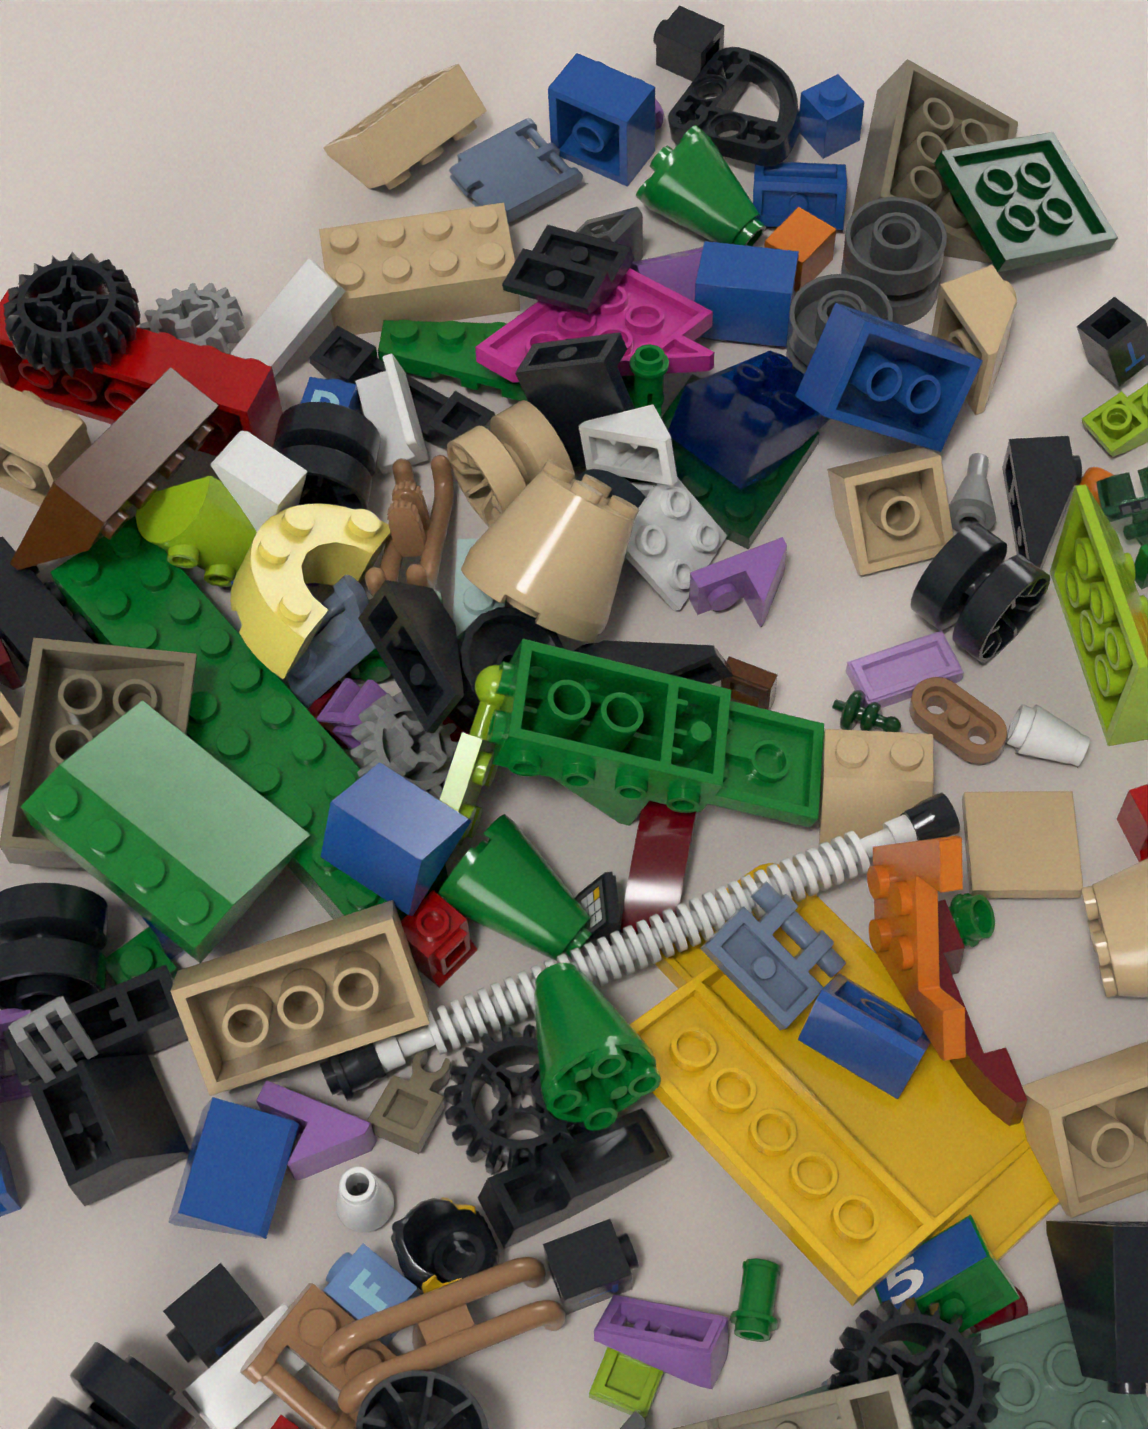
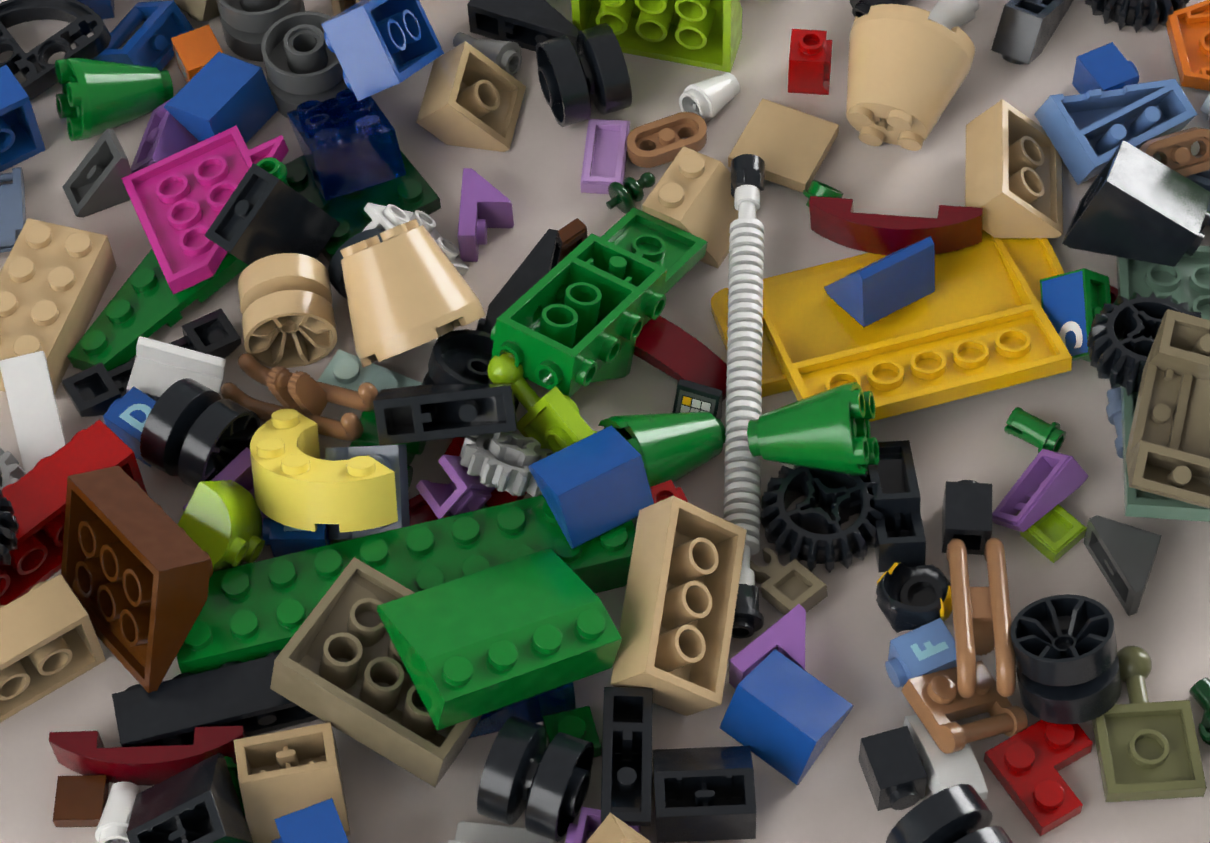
camera: 65 degrees left, 5 degrees down
(61, 1051) = (648, 759): light grey tile -> none
(259, 477) = (220, 457): white slope -> none
(367, 1210) = (848, 639): white cone -> none
(569, 270) = (131, 198): black slope -> none
(630, 445) = (342, 209): white slope -> none
(763, 967) = (808, 313): sand blue plate -> none
(906, 931) = (826, 219): orange wing -> none

